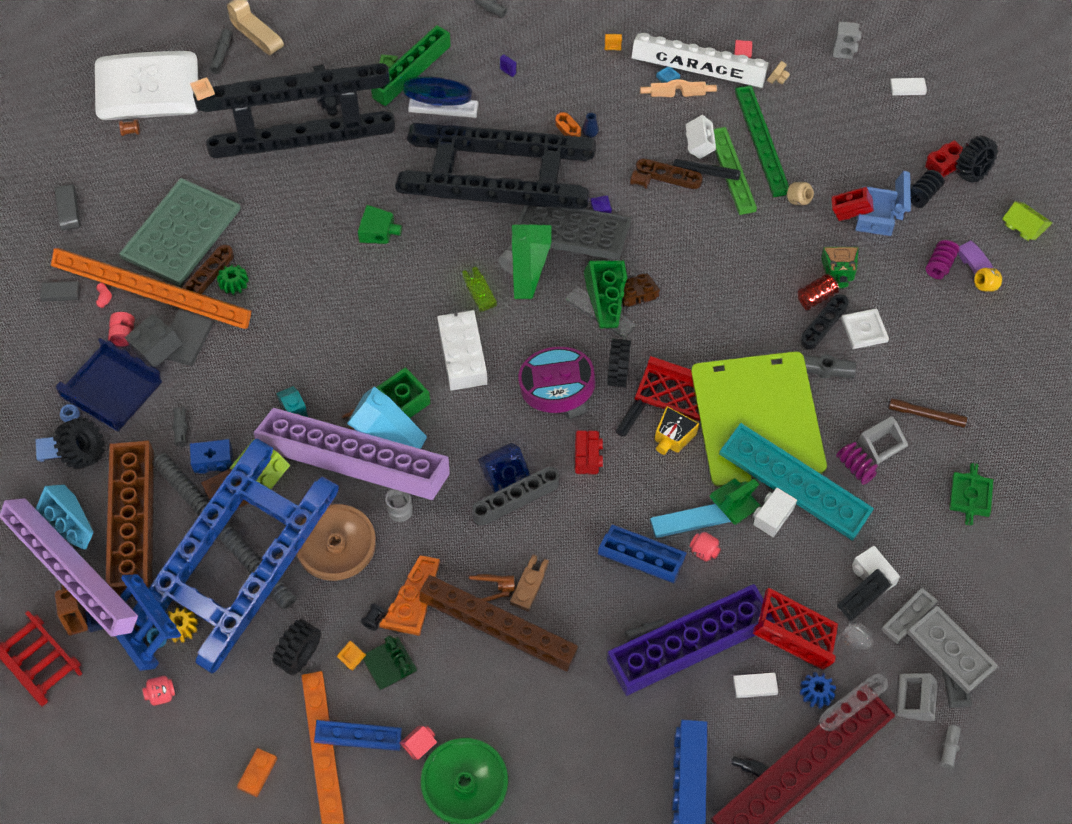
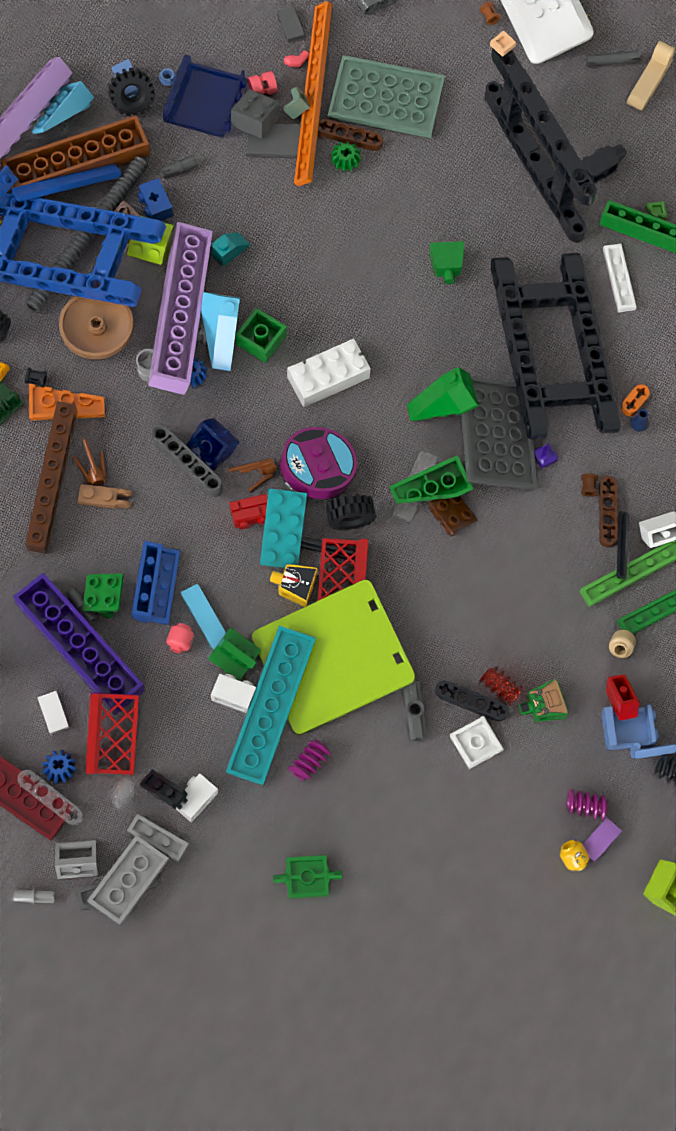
camera: 70 degrees right, 10 degrees up
(158, 303) = (298, 104): none -> sand green panel
(159, 531) = (66, 182): none -> blue tile
(437, 91) = (625, 263): clear blue dish -> none
(479, 290) = (404, 370): clear neon green hinge -> none
(544, 429) = (264, 466): none -> dark orange plant
(617, 425) = (283, 528): none -> teal plate
(643, 601) = (103, 593): none -> green bracket
(878, 431) = (352, 774): light grey tile -> none
(949, 418) = (391, 843): reddish brown piece -> none

